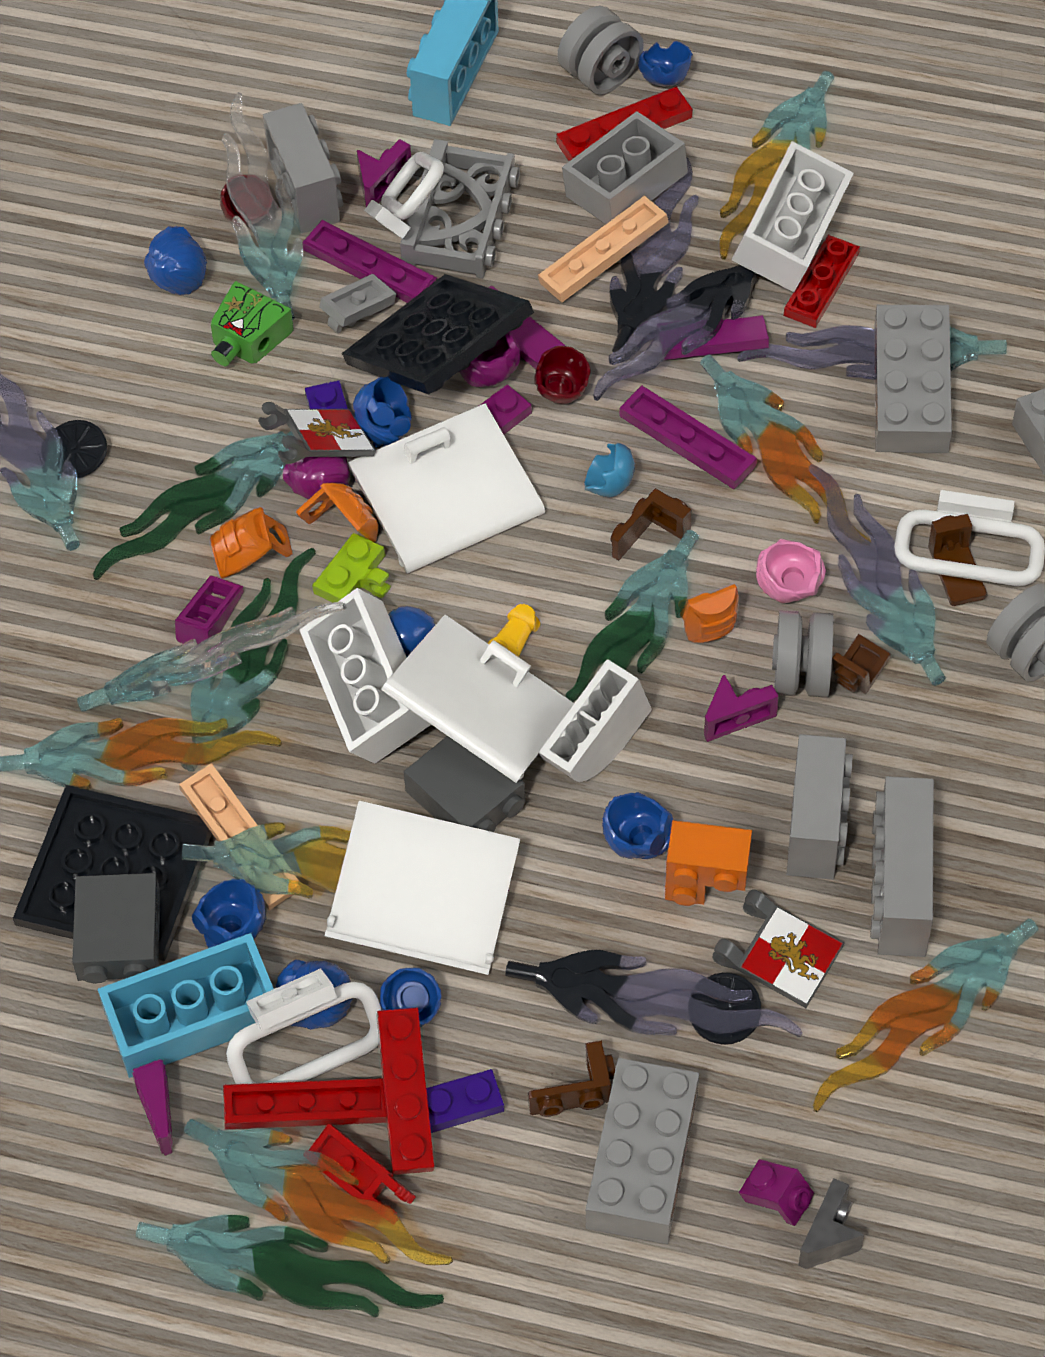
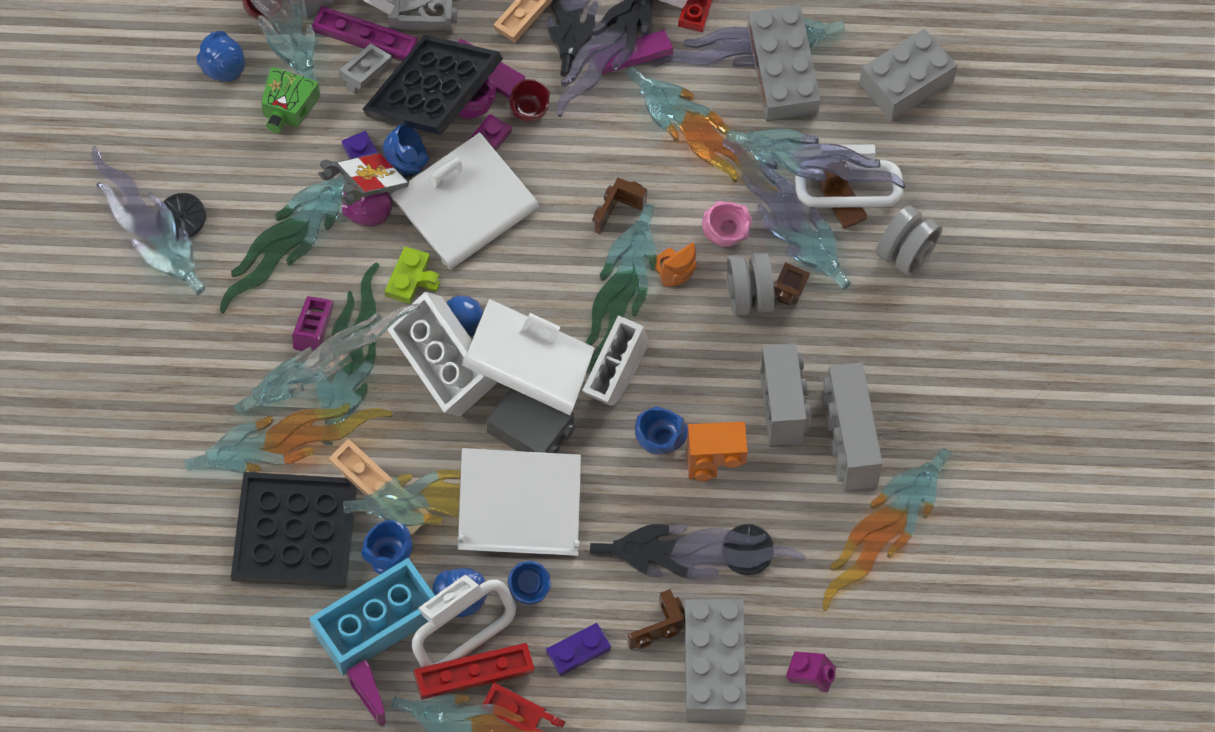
camera: 15 degrees left, 5 degrees up
(115, 926) = (309, 570): dark grey brick -> none
(247, 540) = (328, 266): orange piece -> none
(348, 502) = (398, 225): orange piece -> none
(405, 1091) = (541, 649): red plate -> none
(518, 628) = (540, 299): yellow piece -> none
(612, 472) = (581, 169): dark azure hair -> none
(688, 437) = (630, 132): magenta plate -> none
(732, 713) = (708, 335): magenta slope -> none
(784, 953) = (781, 501): flag -> none
(828, 1235) = (853, 695): flat silver slope -> none
(917, 500) = (804, 156): none -> clear purple piece

